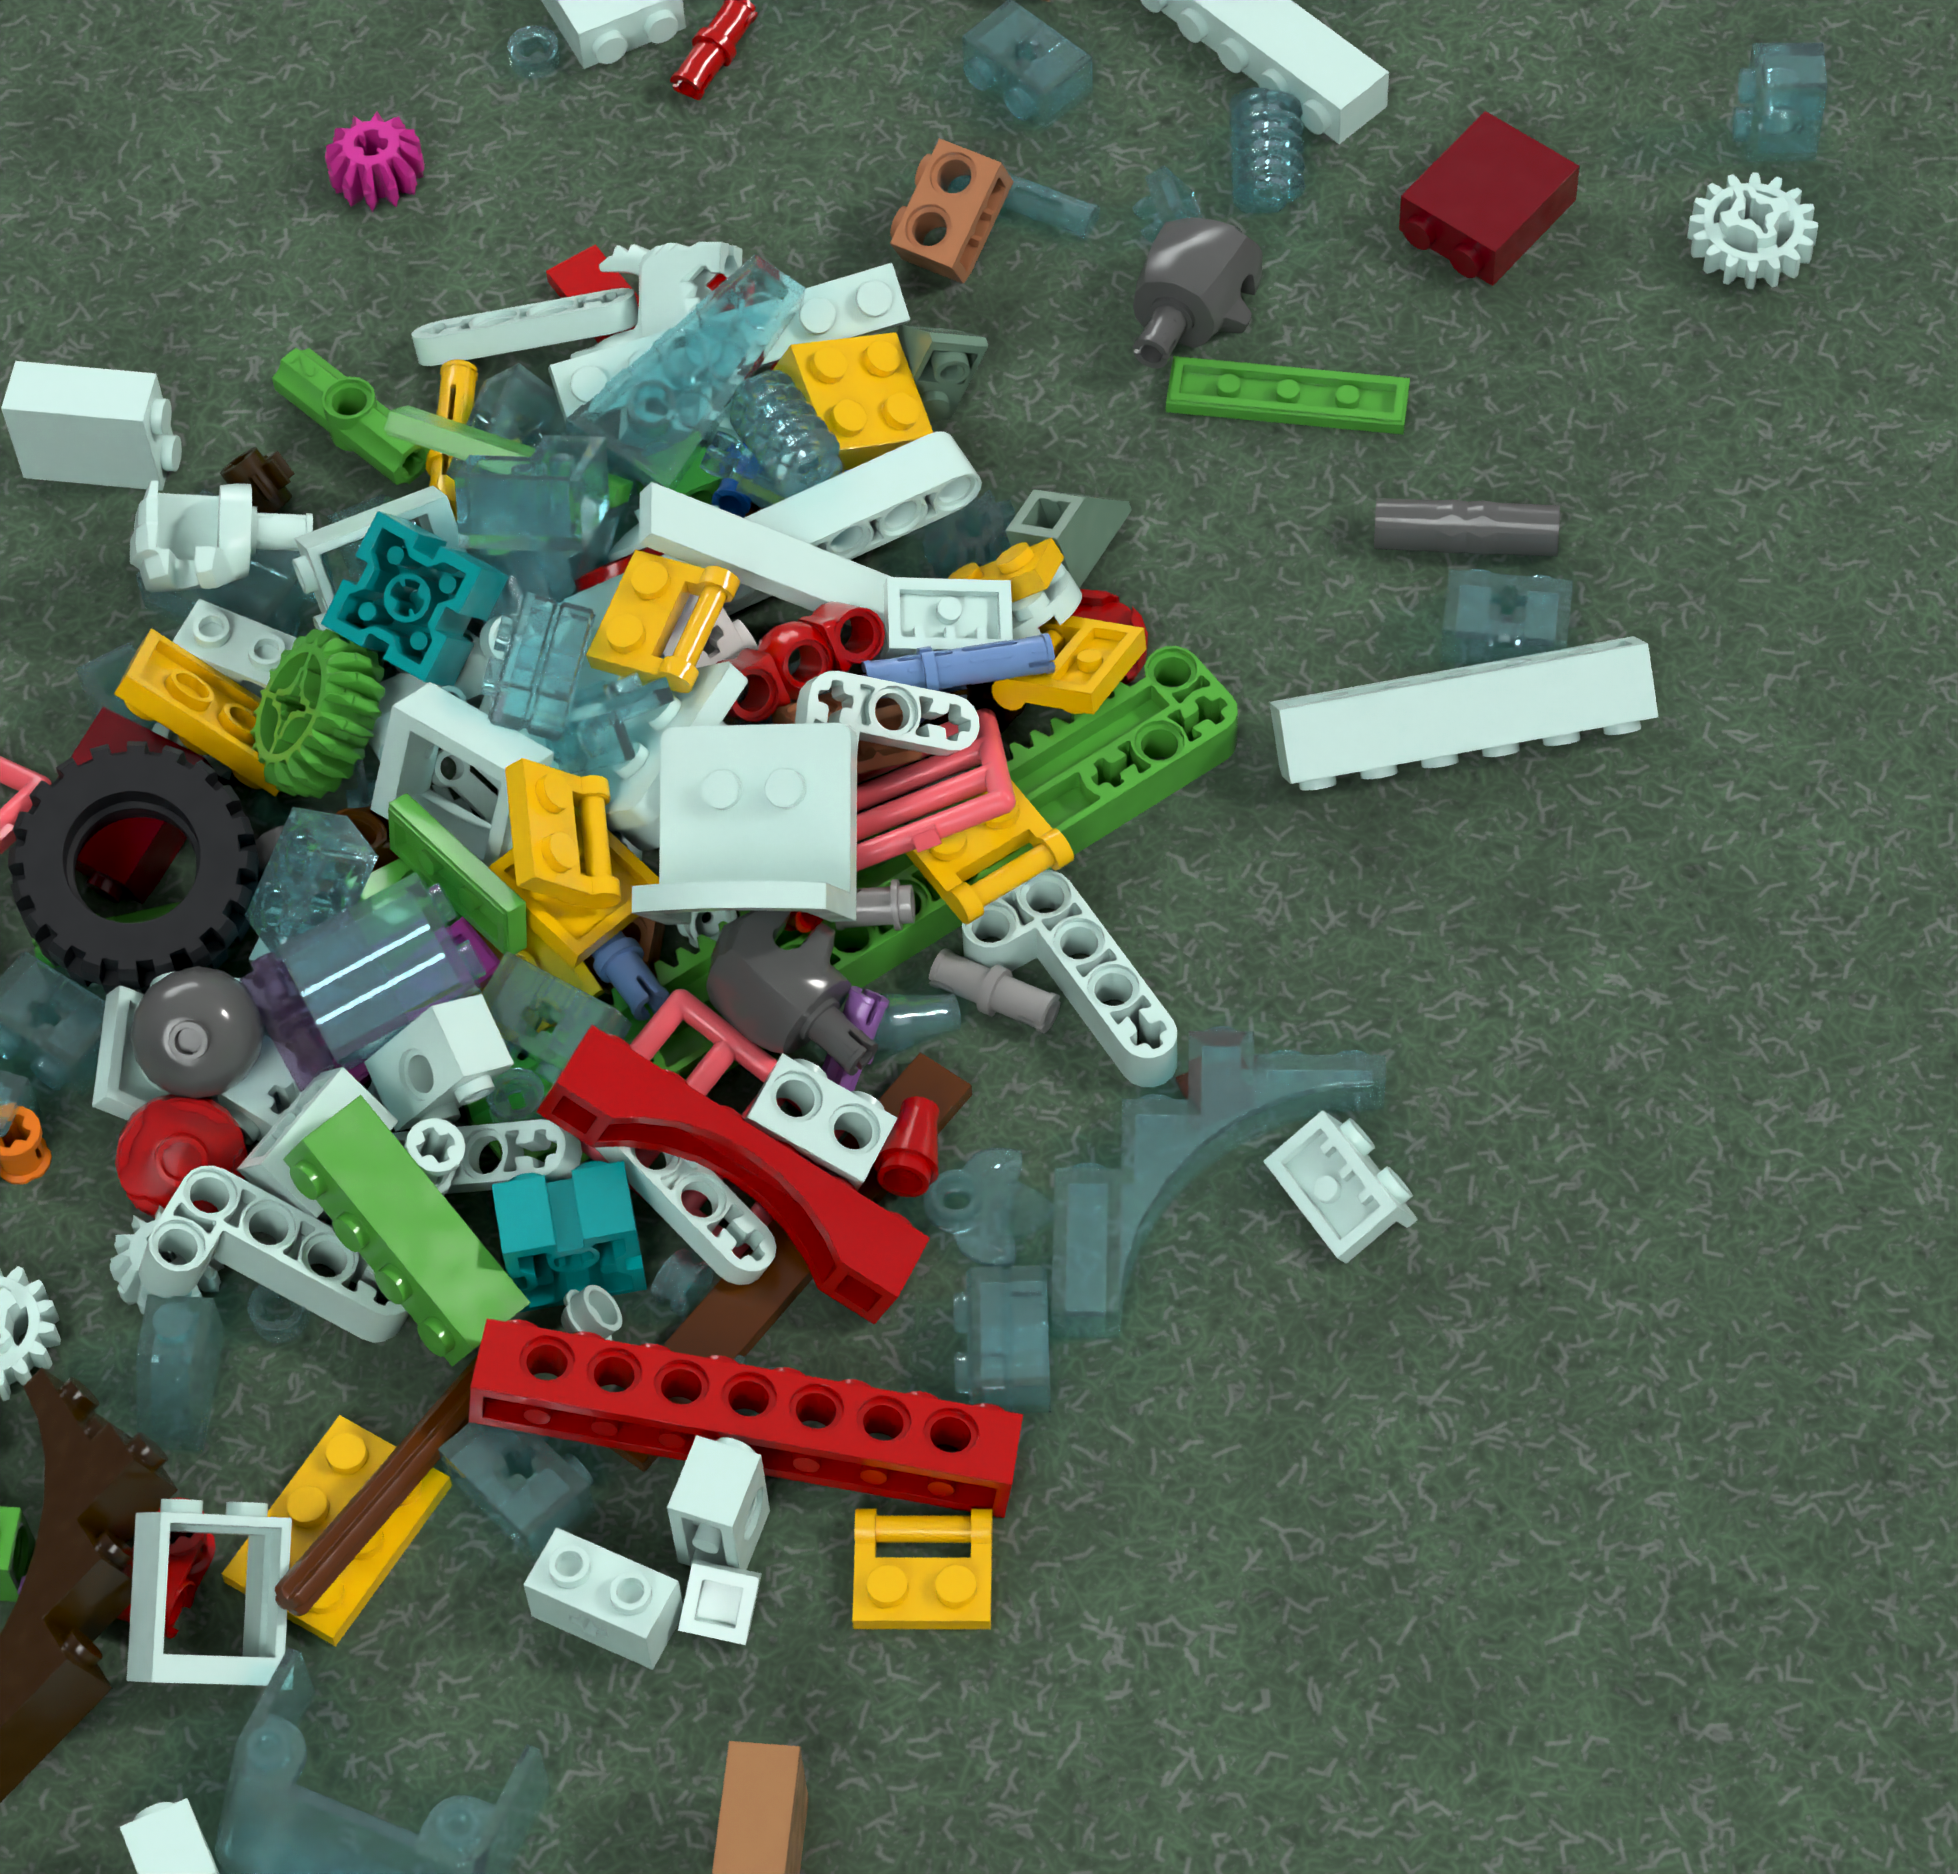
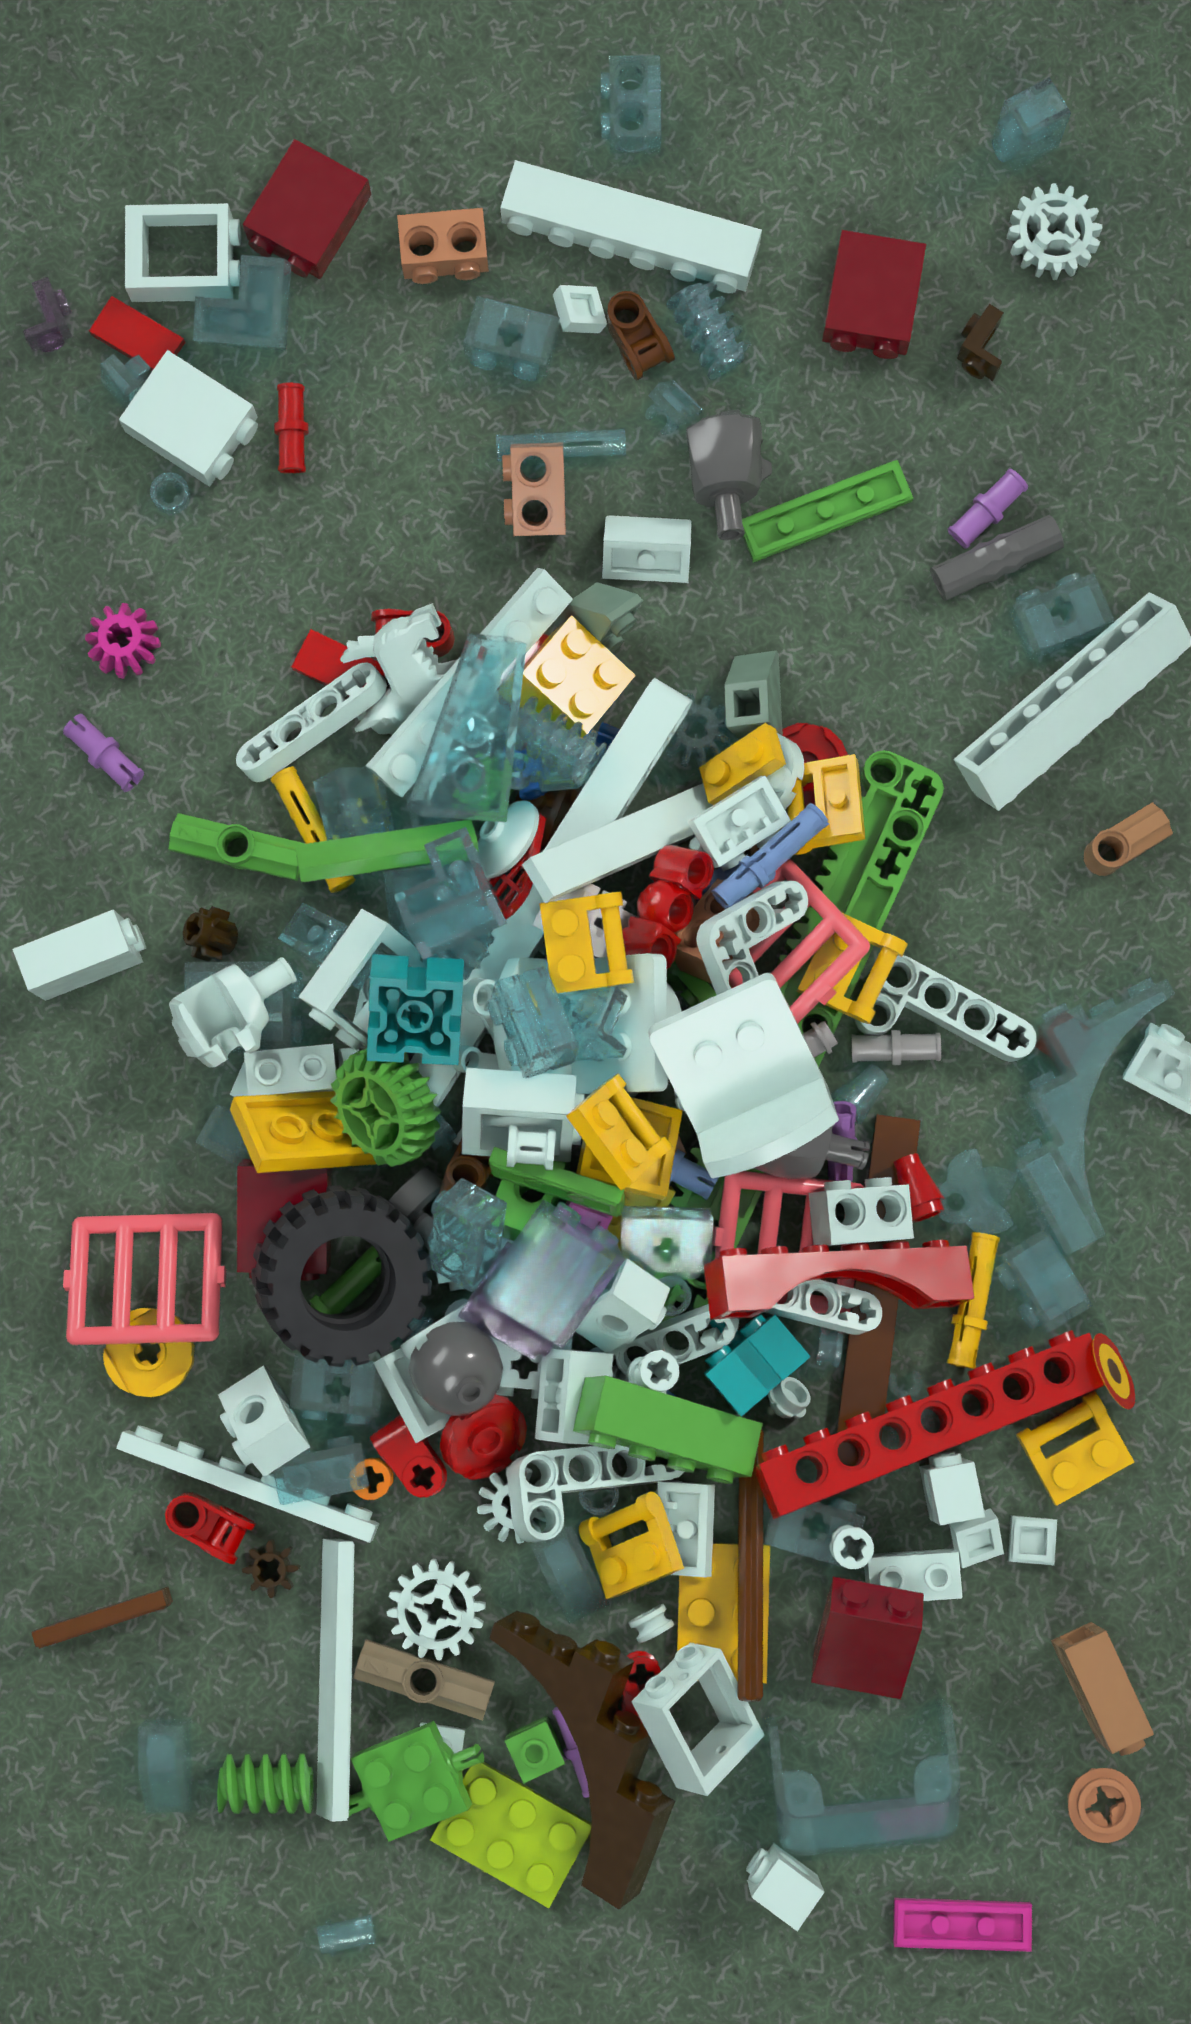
camera: 30 degrees left, 25 degrees up
(80, 1152) = (404, 1456): none -> red piece
(235, 1483) = (651, 1623): none -> light aqua bush
(272, 260) = (103, 752): none -> medium lavender pin
(279, 1388) = (637, 1559): none -> yellow plate
(350, 1383) = (691, 1521): none -> light aqua bracket
(445, 799) = (529, 1156): none -> light aqua bush
(490, 1621) = (867, 1637): none -> dark red brick
(535, 1471) = (865, 1549): none -> light aqua bush
(794, 1652) = (1032, 1540): none -> light aqua tile
(887, 1339) = (970, 1315): none -> yellow pin
(1027, 1482) = (1113, 1371): none -> sticker
(1042, 338) = (646, 549): none -> light aqua panel
(1126, 71) = (579, 309): none -> light aqua plate
(1176, 124) = (641, 341): none -> reddish brown piece
(1437, 897) = (1128, 839): none -> medium nougat piece
(1491, 473) = (988, 508): none -> medium lavender pin
(1587, 296) = (978, 332): none -> dark brown bracket

